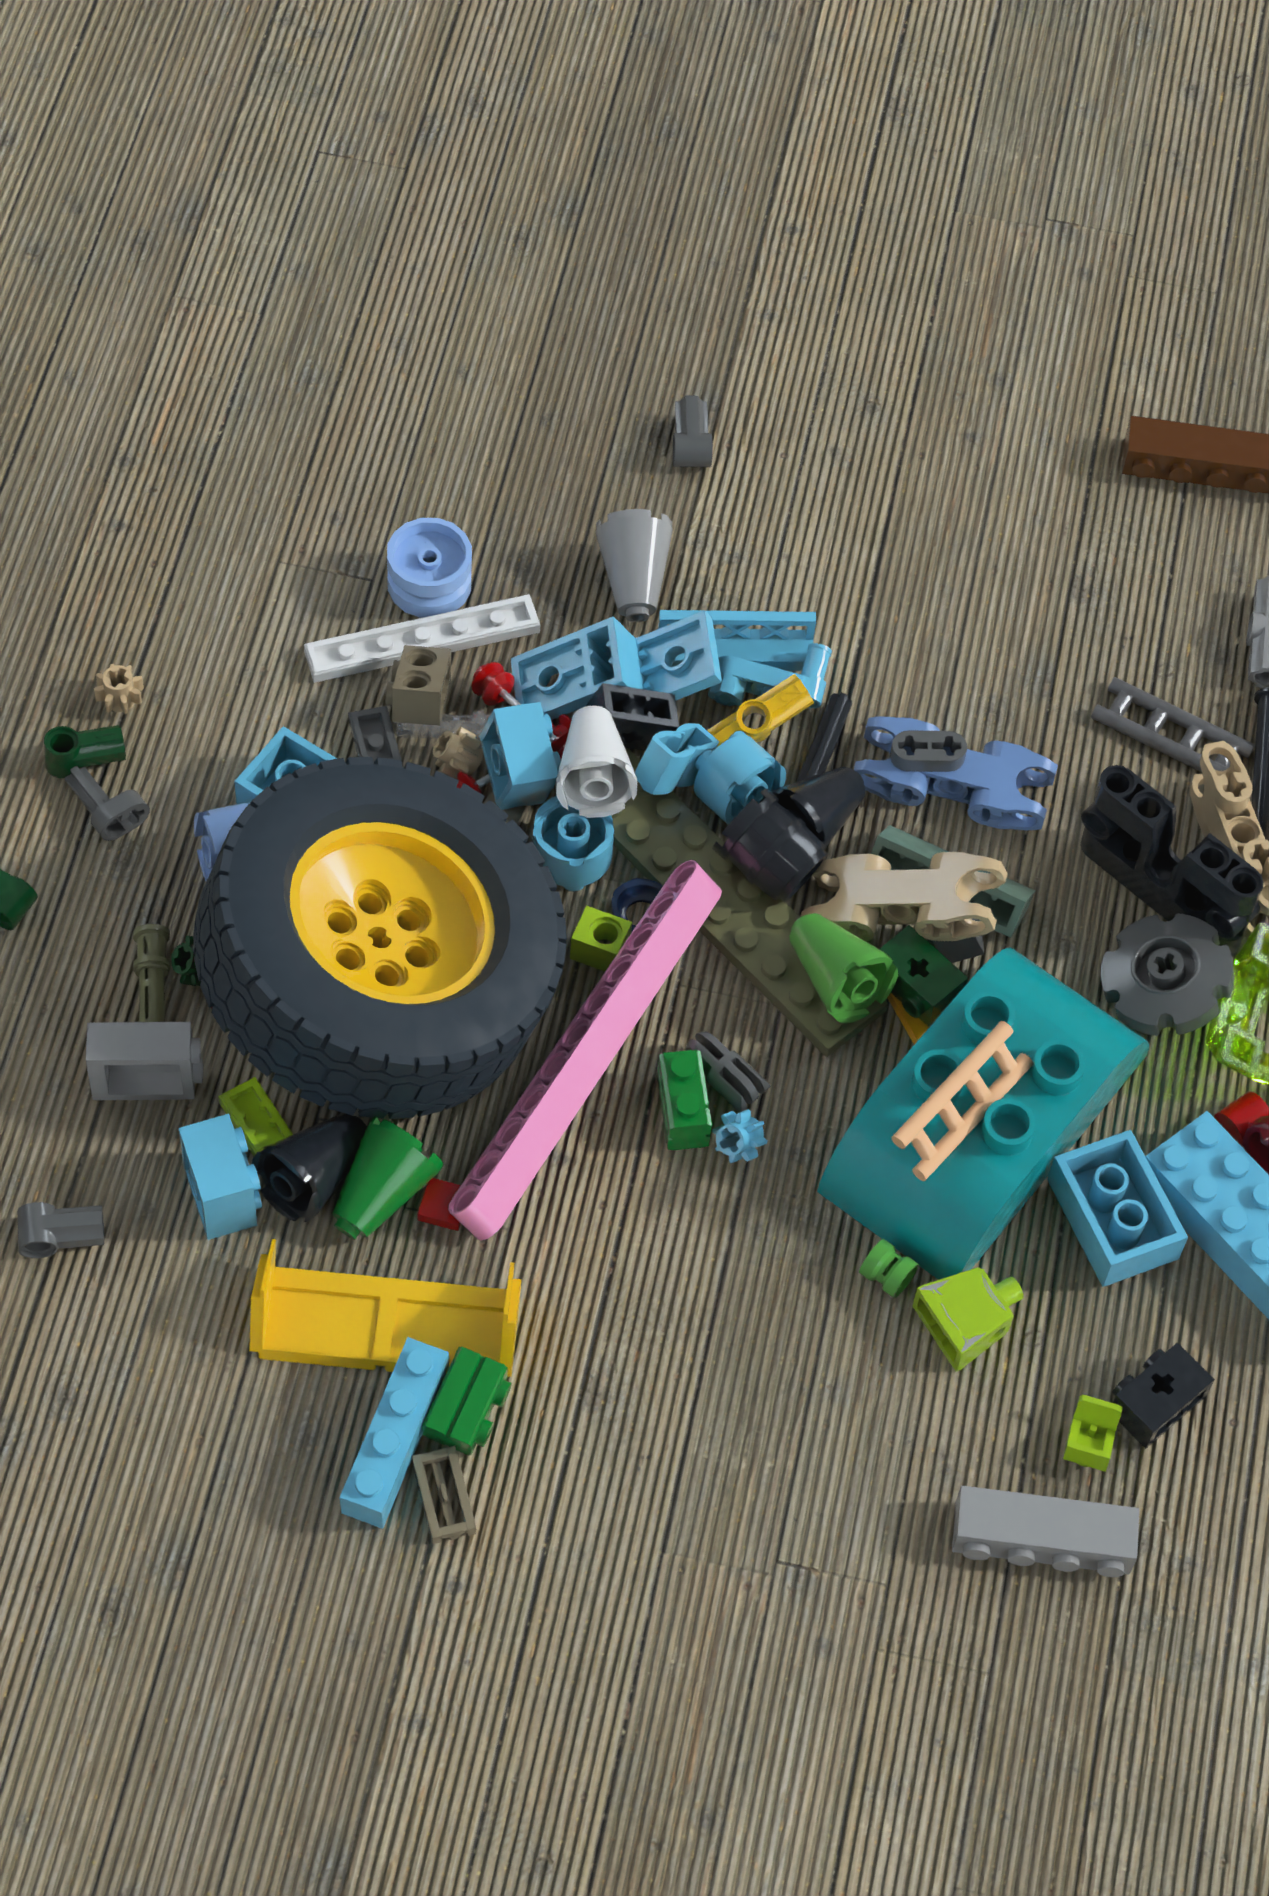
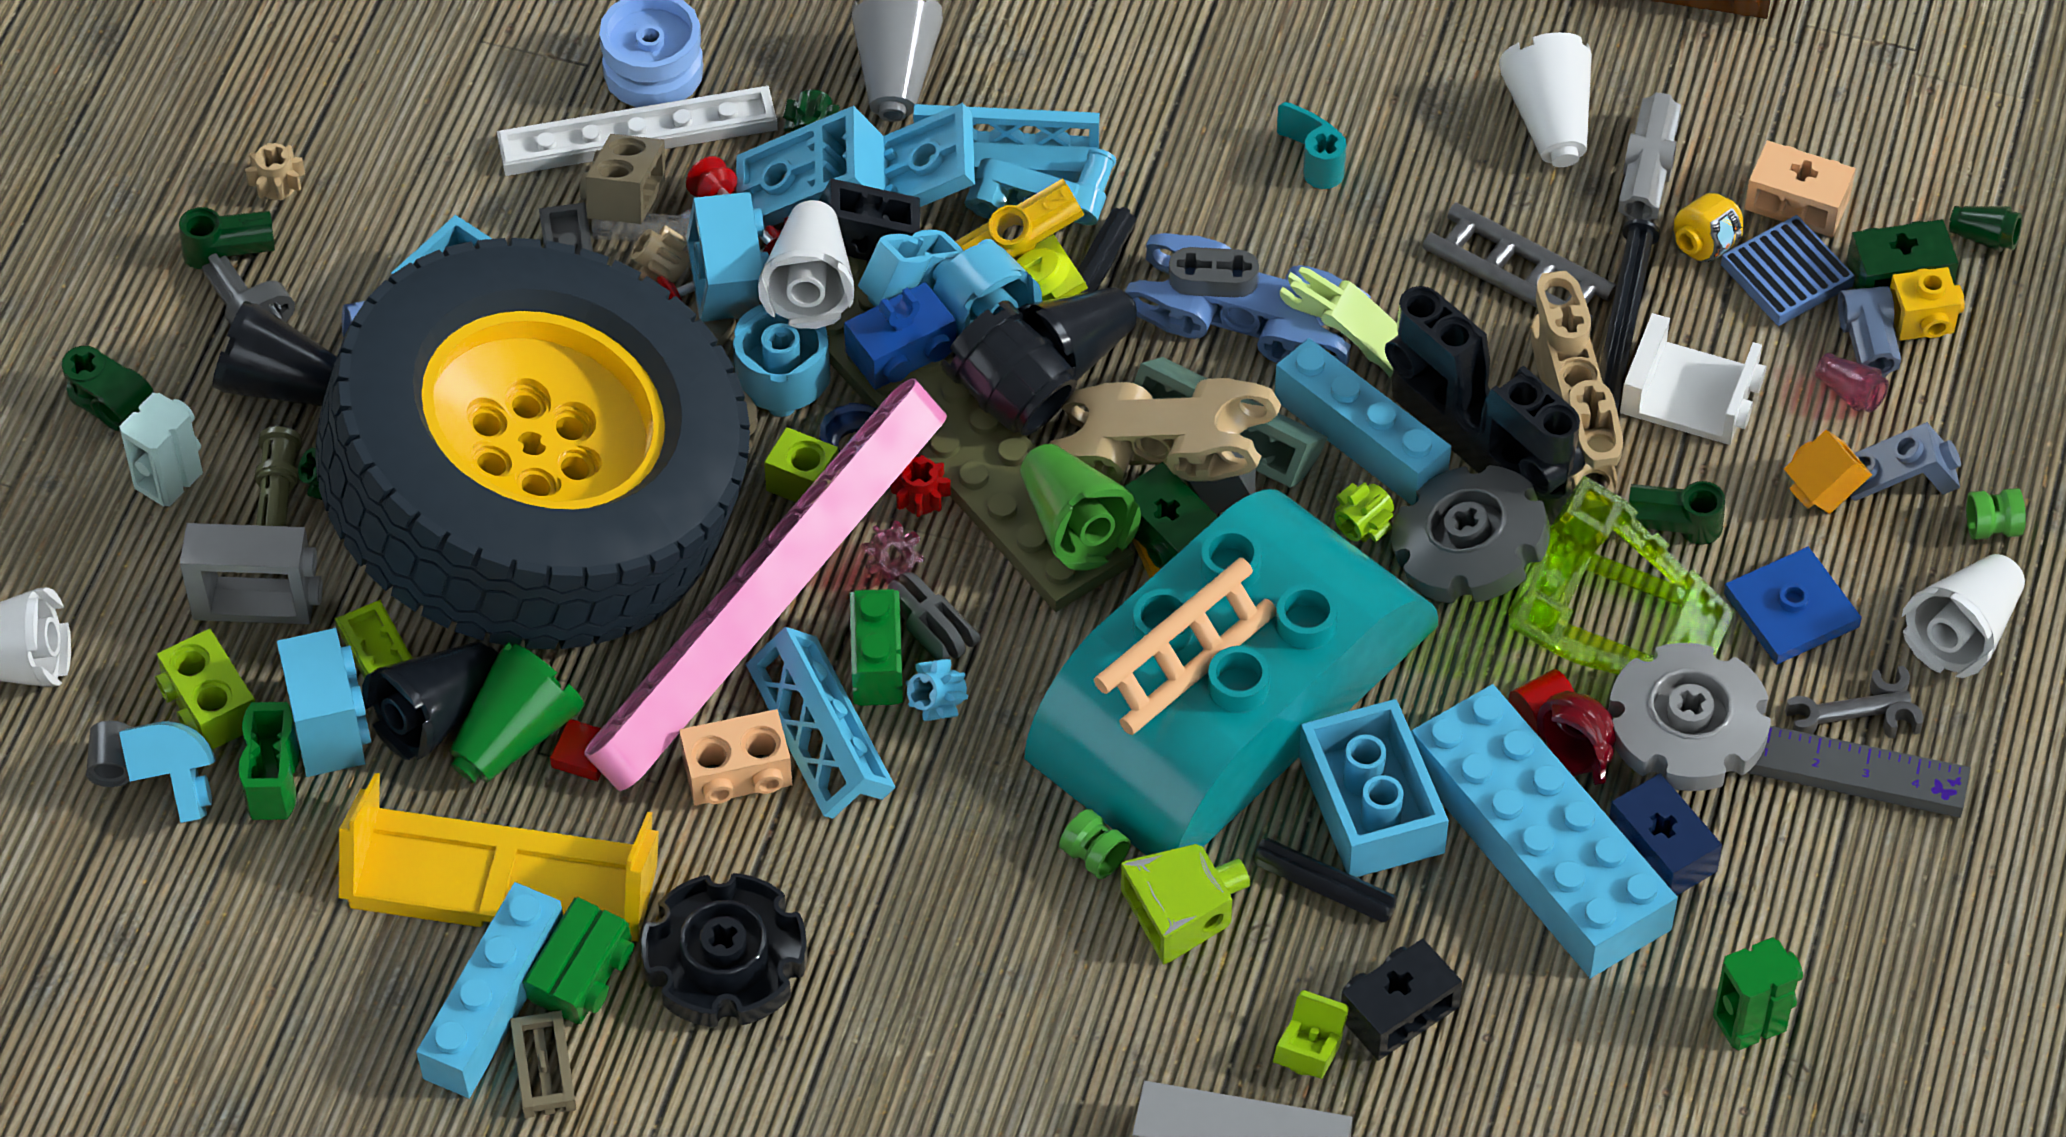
camera: 10 degrees right, 5 degrees down
(52, 949) = (161, 448): none -> light aqua brick
(92, 1229) = (175, 750): none -> medium azure brick
(122, 1164) = (213, 687): none -> lime brick
(144, 864) = (272, 360): none -> black cone
(178, 1231) = (269, 760): none -> green brick
(569, 618) = (810, 108): none -> dark green gear
(572, 1196) = (734, 748): none -> light nougat brick
(586, 1412) = (724, 950): none -> black piece
(655, 1163) = (833, 716): none -> medium azure fence
(673, 819) = (900, 335): none -> blue brick
(679, 1004) = (881, 559): none -> clear pink gear
(705, 952) = (921, 486): none -> red gear
(791, 752) = (1052, 270): none -> neon yellow piece
(1002, 630) = (1323, 145): none -> teal panel
(1044, 781) = (1345, 310): none -> yellowish green arm
(1064, 877) = (1360, 420): none -> medium azure brick
(1076, 958) = (1364, 512): none -> lime gear
(1083, 1289) = (1325, 880): none -> black axle
(1184, 580) = (1552, 93): none -> white cone

